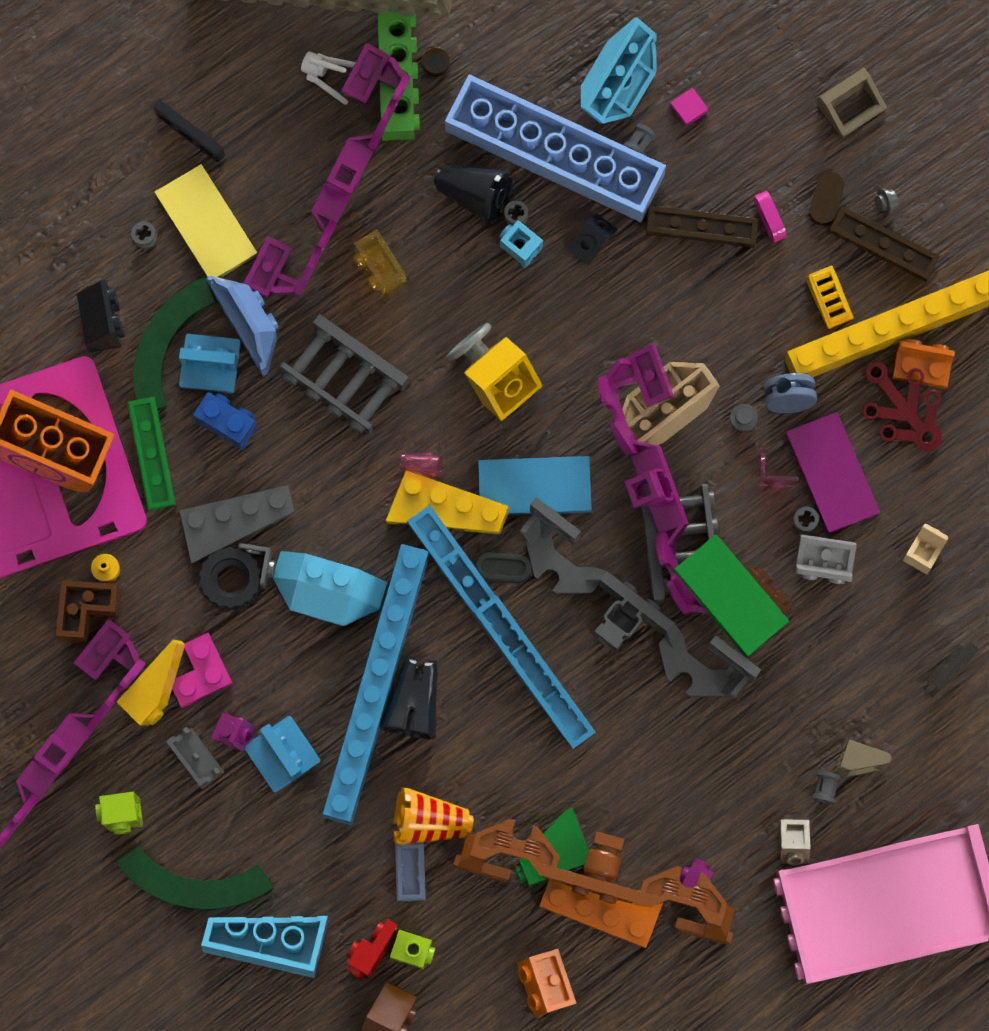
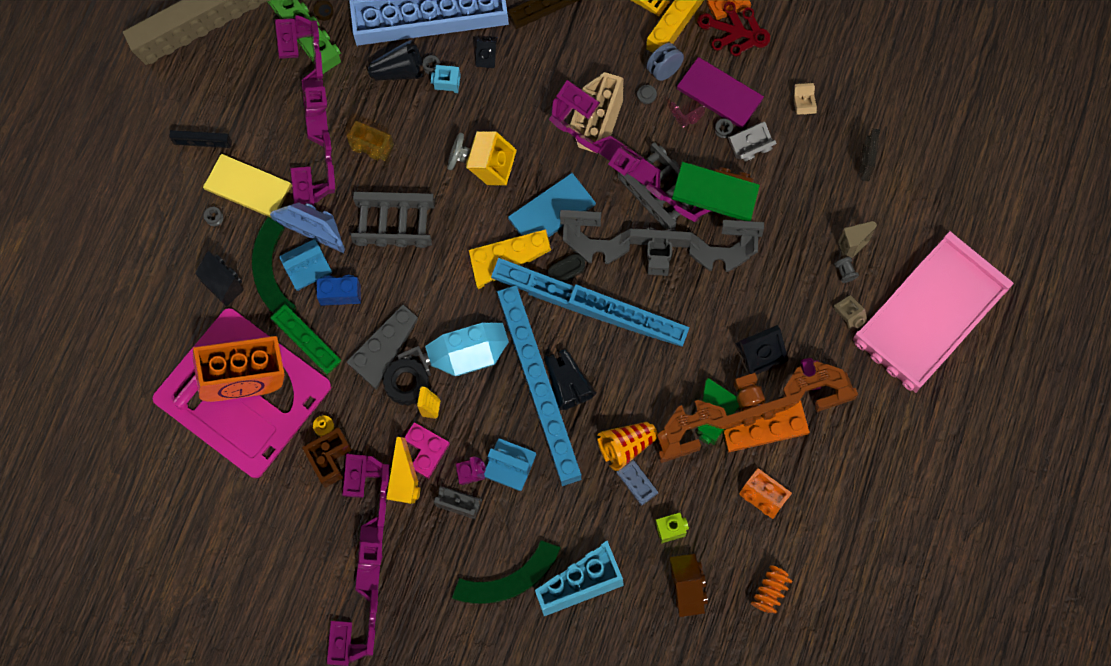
camera: 30 degrees left, 5 degrees down
(119, 812) = (434, 564): lime brick -> none
(237, 622) = (428, 403): none -> yellow slope
(317, 65) = (253, 54): white plant -> none
(366, 956) = (647, 547): red plate -> none
(423, 464) = (475, 240): clear pink cone -> none
(659, 817) = (763, 350): none -> black bracket

